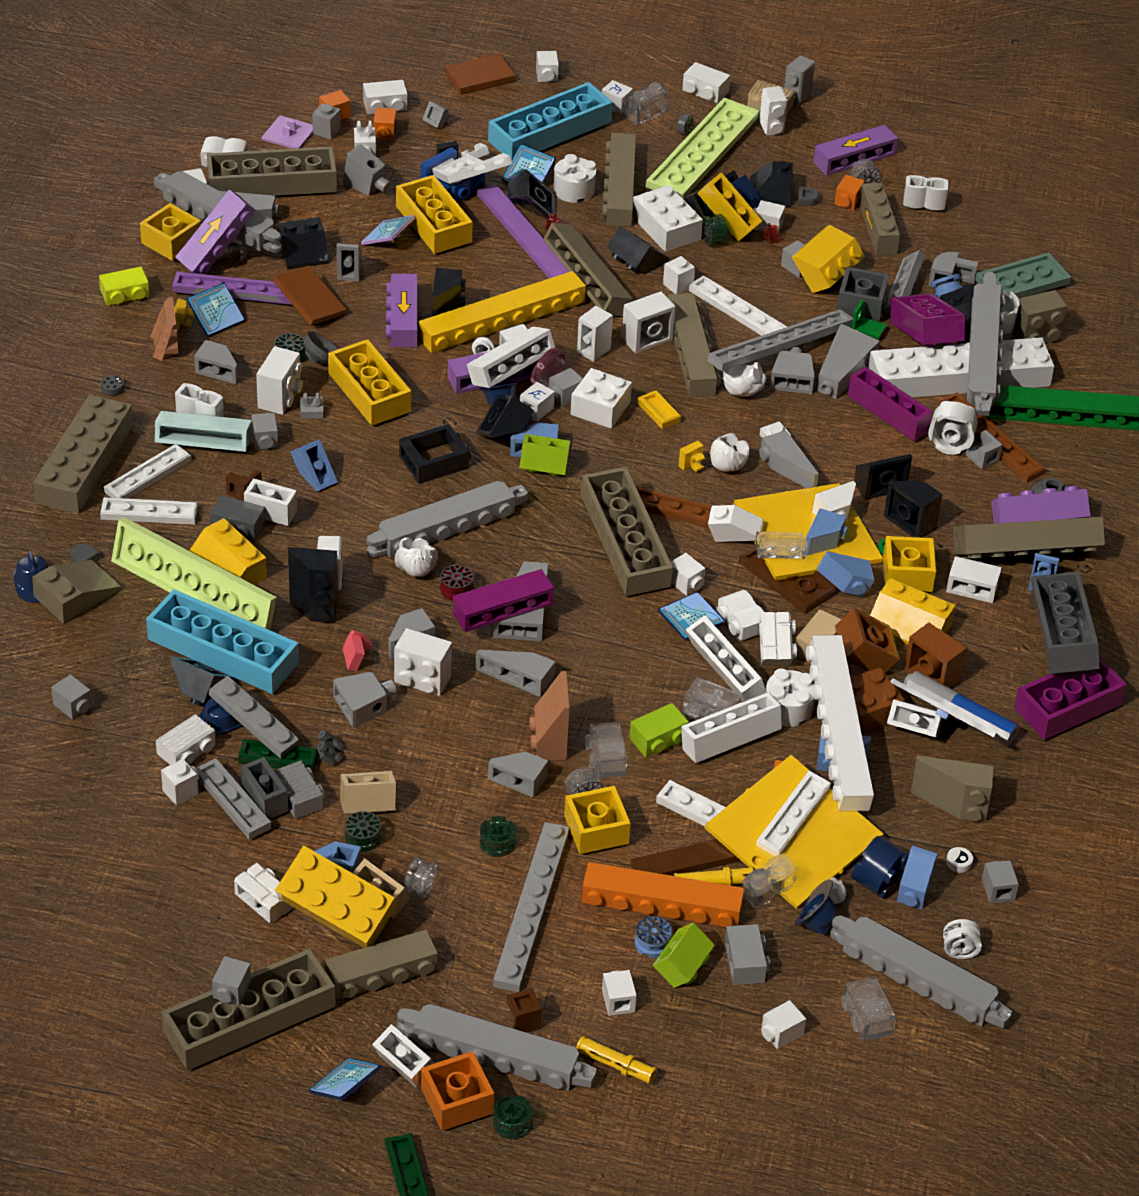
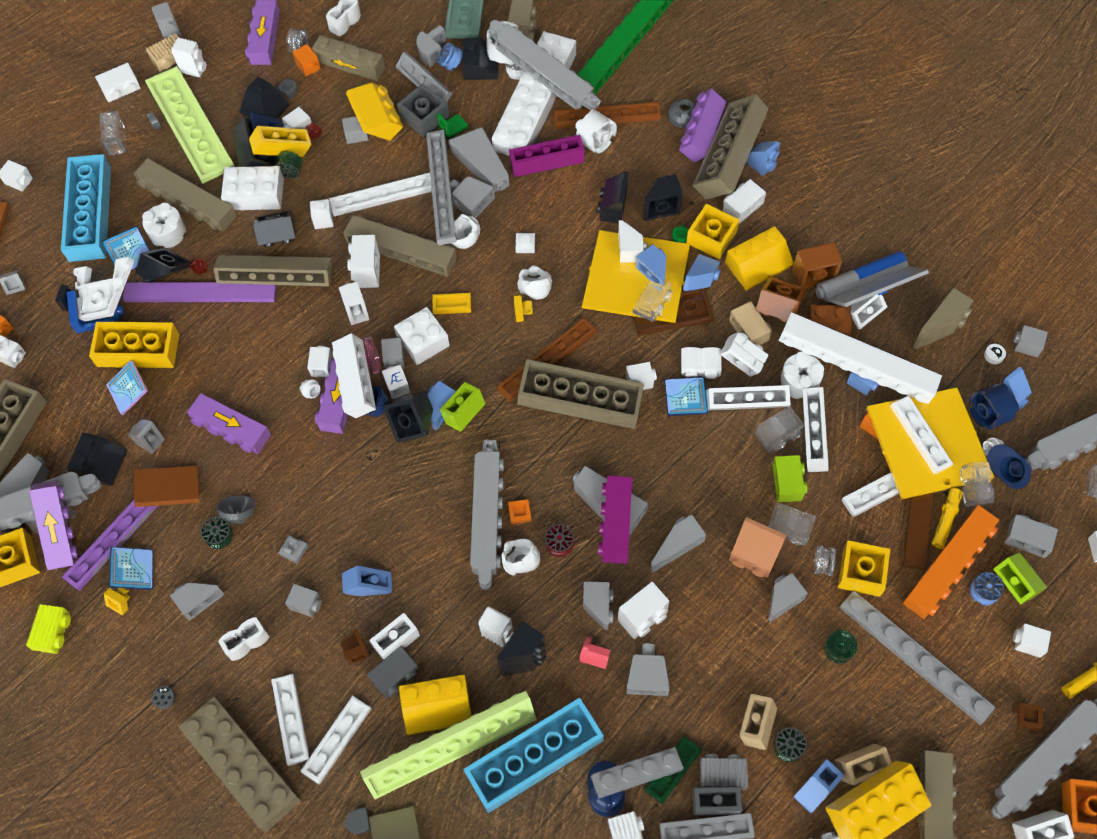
camera: 55 degrees left, 20 degrees up
(165, 332) = (136, 623): nougat slope -> none
(196, 679) = (563, 793): black slope -> none
(203, 431) = (275, 651): light aqua brick -> none
(279, 380) = (258, 560): white brick -> none
(329, 748) = (687, 728): dark grey piece -> none
(365, 171) = (48, 369): light grey torso -> none
(369, 382) = (300, 492): yellow brick -> none
(420, 877) = (863, 725): clear wheel -> none
(437, 467) = (408, 504): black window -> none
(448, 291) = (241, 385): black slope -> none
(467, 545) = (519, 511): none -> orange tile
(501, 311) = (279, 355): yellow brick -> none
(617, 93) = (89, 145): white brick -> none
(733, 524) = (612, 318): white slope -> none
(787, 459) = (558, 249): light grey slope -> none
(928, 319) = (485, 86): magenta brick -> none
(962, 941) = (1078, 393): white wheel -> none
(987, 452) = (624, 125): light grey panel -> none
(1065, 623) = (833, 171): dark grey brick -> none
(1069, 699) = (888, 207): magenta brick -> none

